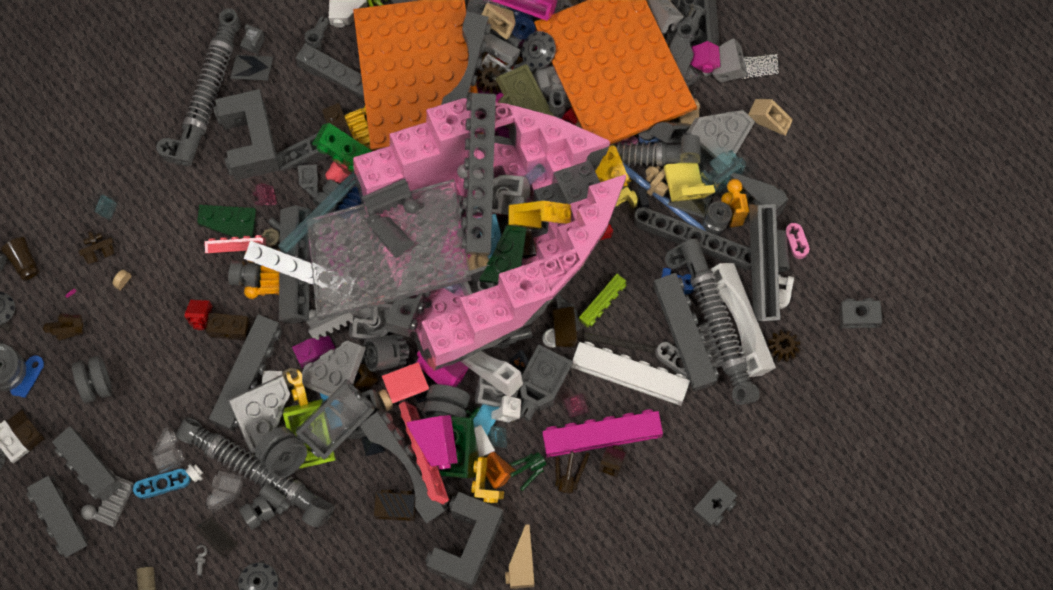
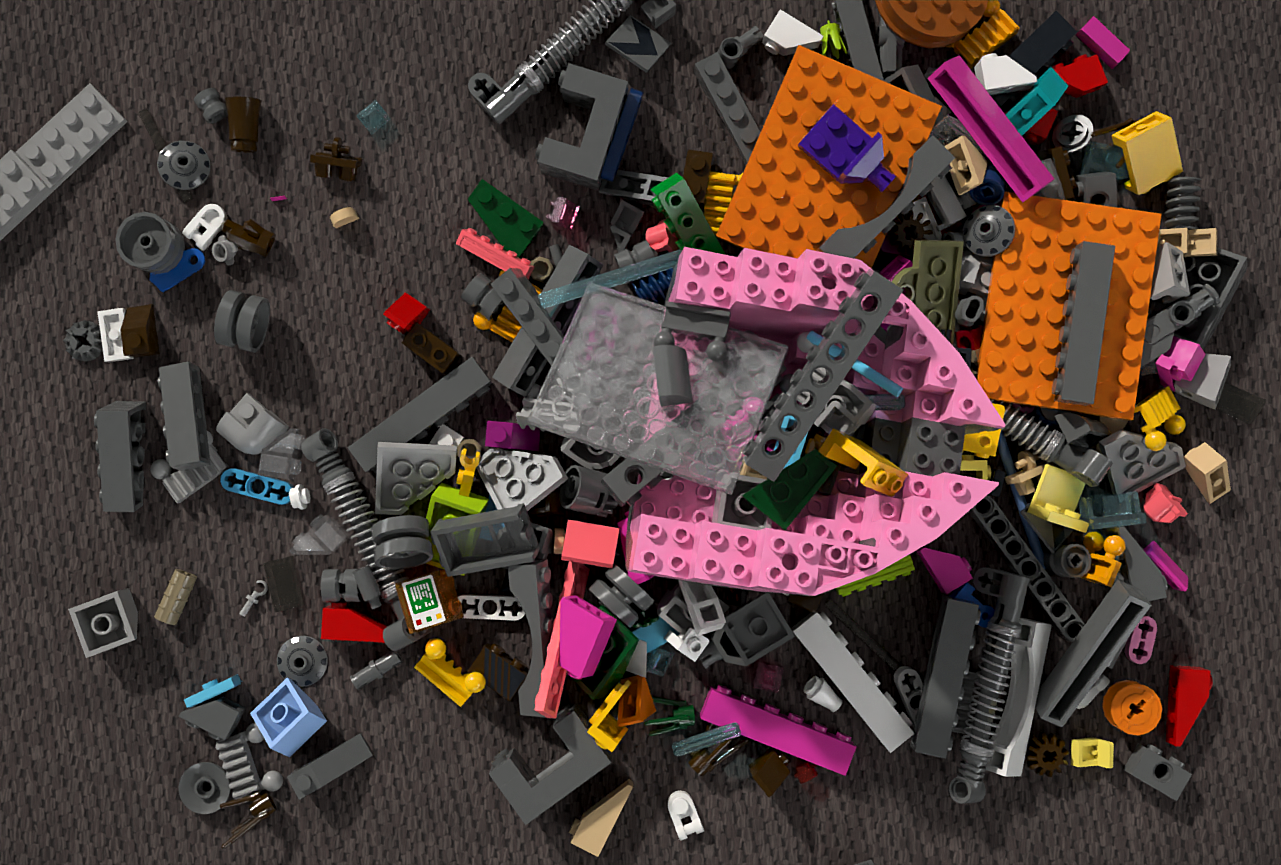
camera: 30 degrees right, 15 degrees up
(31, 330) = (211, 217): none -> white plate
(48, 345) = (224, 250): none -> light grey plate
(134, 447) = (250, 426): none -> light grey brick
(274, 126) = (622, 135): none -> dark blue beam
(277, 535) = (350, 624): none -> red slope
(312, 555) = (376, 669): none -> dark grey pin
(322, 483) = (429, 601): none -> slope
(349, 473) = (509, 600): none -> white beam
(360, 529) = (445, 677): none -> yellow gear
(420, 51) = (846, 150): none -> dark purple plate
(512, 162) = (860, 367): none -> medium azure bar
(558, 465) = (706, 739): none -> clear light blue axle
(570, 522) = (680, 806): none -> white plate
(617, 394) = (821, 693): none -> white cone
(629, 67) = (1083, 323): none -> dark grey brick
(638, 450) = (805, 772): none -> clear red plate
(643, 268) = (946, 569): none -> dark pink slope
(696, 66) = (1163, 367): none -> dark pink piece
(712, 95) = (1156, 409): none -> yellow gear
(755, 151) = (1162, 505): none -> coral piece
(790, 190) = (1174, 575): none -> dark pink slope
(811, 327) = (1092, 752): none -> light yellow bracket
(828, 284) = (1146, 711): none -> orange piece
(846, 255) = (1186, 697): none -> red slope

